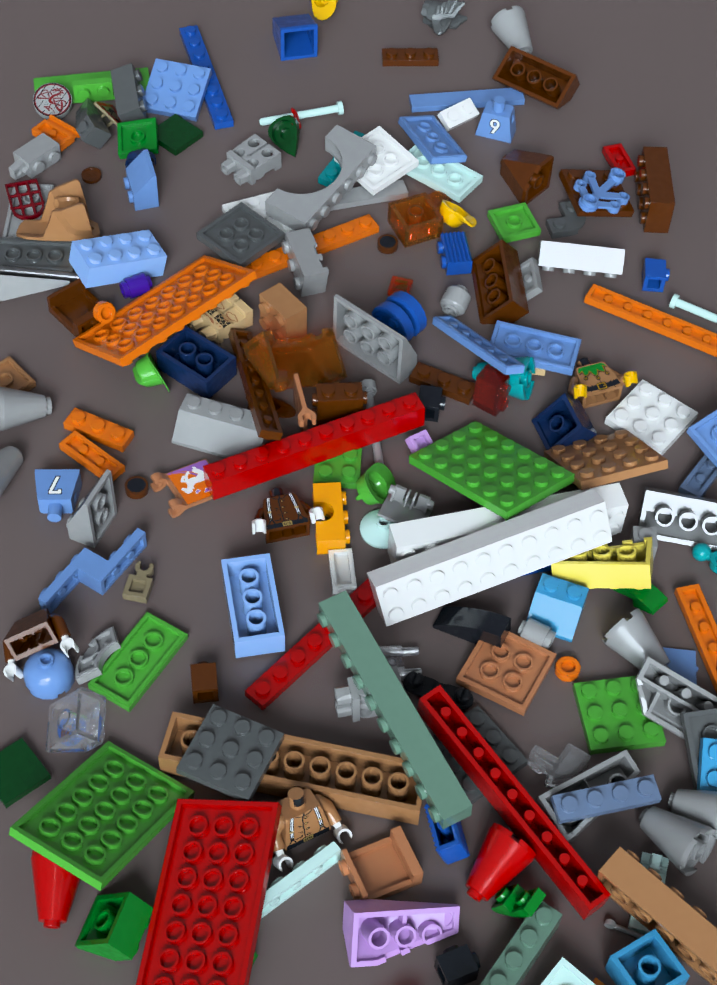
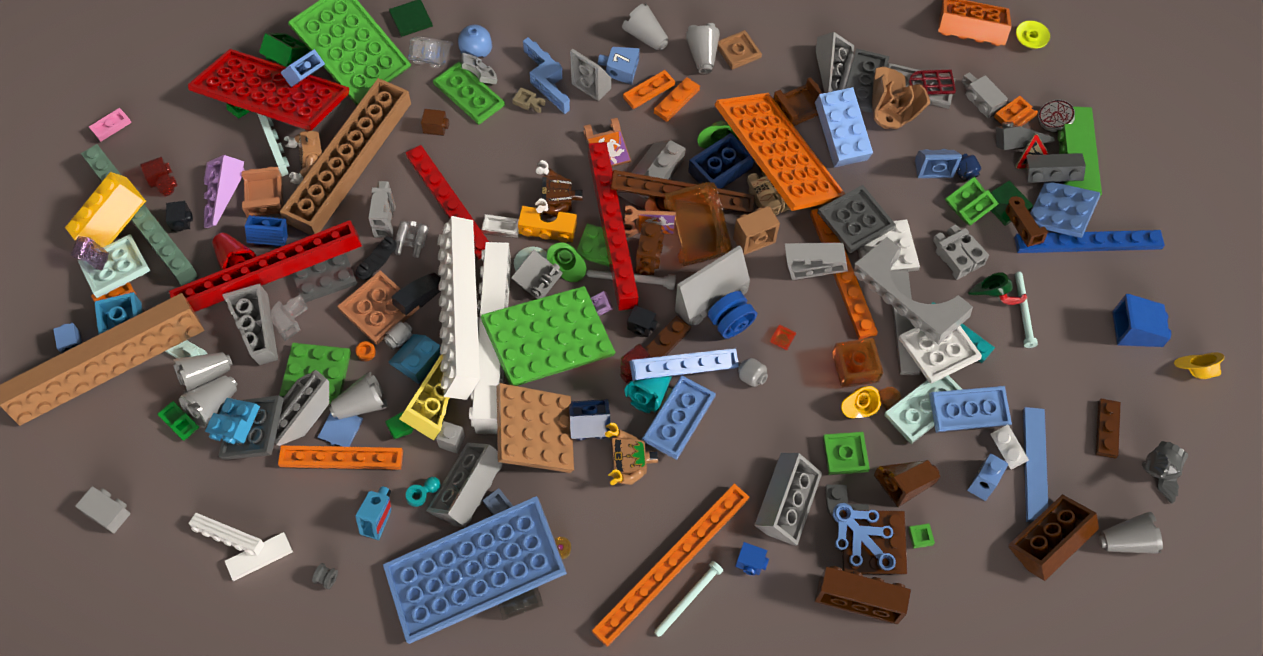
camera: 105 degrees right, 10 degrees up
(32, 635) = (497, 32): reddish brown torso -> none
(91, 175) = (962, 135): reddish brown piece -> none
(104, 312) = (784, 109): orange tile -> none
(135, 285) = (818, 141): dark purple brick -> none
(136, 487) = (616, 112): tile -> none
(137, 135) = (999, 169): green plate -> none
(169, 857) = (302, 68): none -> medium blue brick
(184, 157) = (971, 201): none -> bright green slope
(204, 112) = (1024, 222): none -> reddish brown leg
(230, 753) = (362, 114): dark grey plate -> none
(253, 605) = (482, 157): light blue brick -> none
(387, 244) = (837, 337): tile -> none
(394, 711) = (350, 203): sand green brick -> none
(455, 253) = (812, 389): blue brick -> none
(499, 285) = (765, 416): reddish brown slope -> none
(517, 902) = (199, 259): green slope -> none
(531, 278) = (768, 443): light grey plate -> none
(573, 162) = (921, 535): none -> bright green plate
(605, 799) = (238, 324): sand blue plate -> none
(618, 157) = (923, 583): red plate -> none
(652, 416) = (584, 498): white plate -> none

